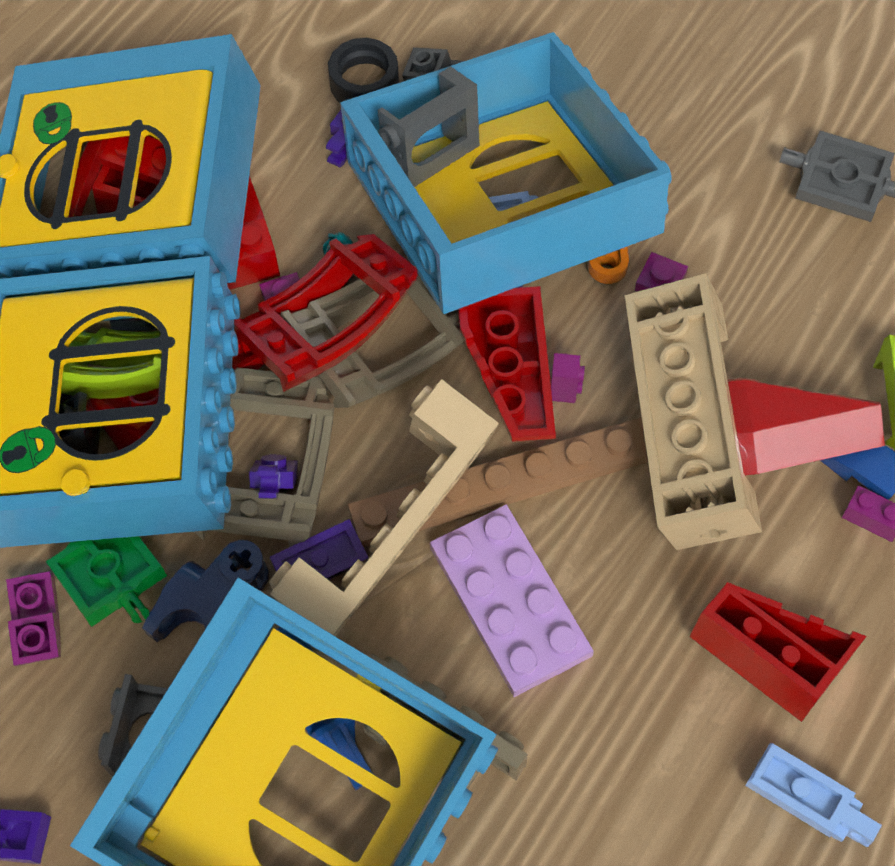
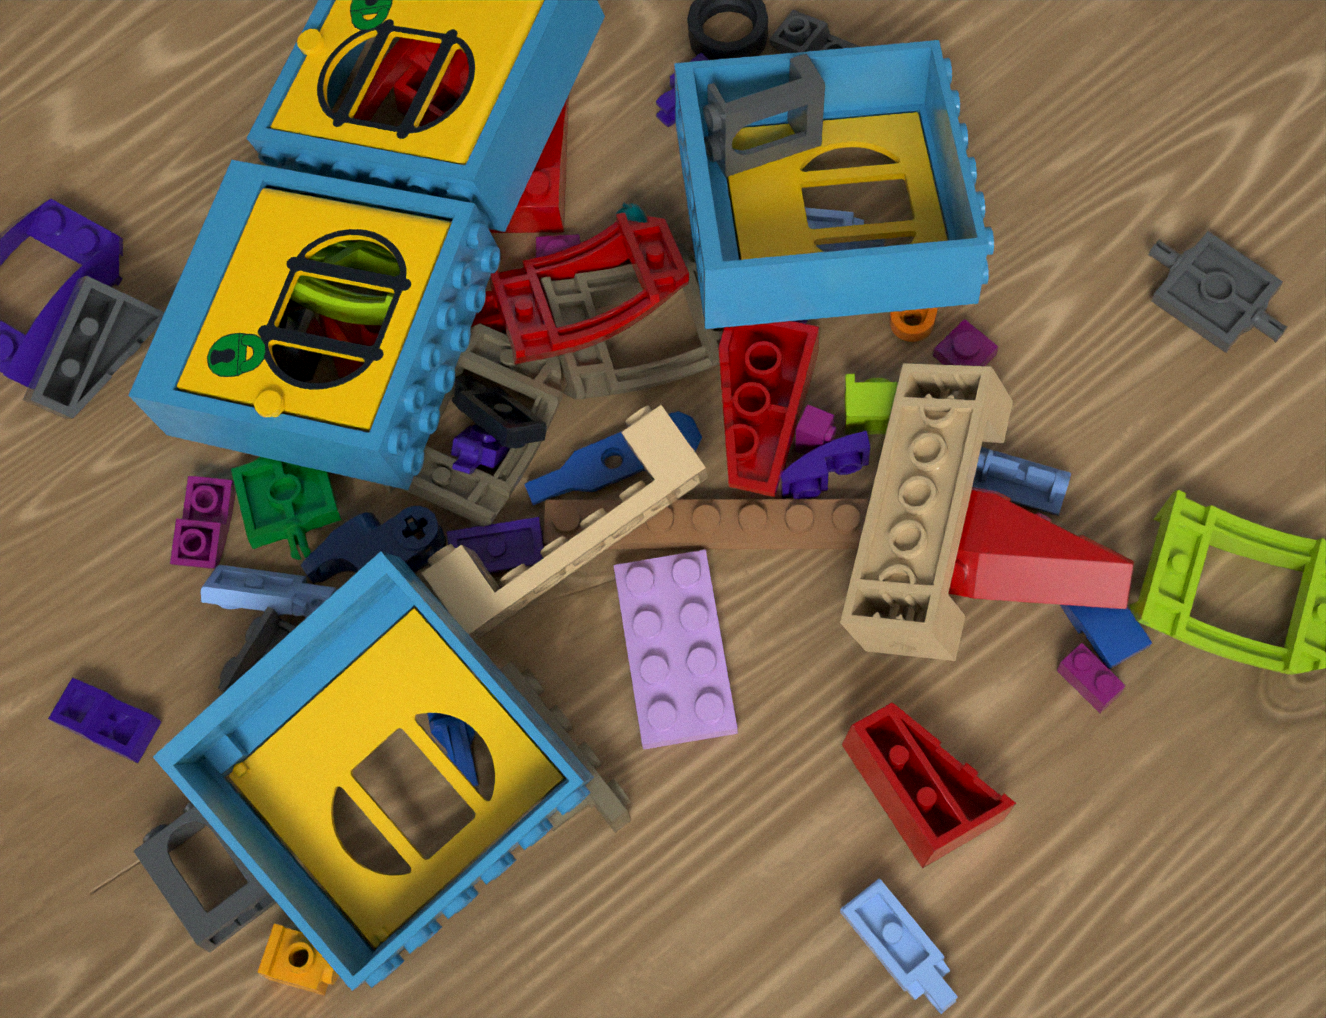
camera: 25 degrees right, 5 degrees up
(110, 662) = (259, 589): none -> light blue hinge
(281, 439) = (498, 413): none -> black hinge
(374, 467) = (587, 468): none -> blue piece
(575, 411) = (809, 474): none -> dark purple slope
(603, 343) = (868, 404): none -> lime brick
(765, 366) = (1022, 480): none -> medium blue hinge

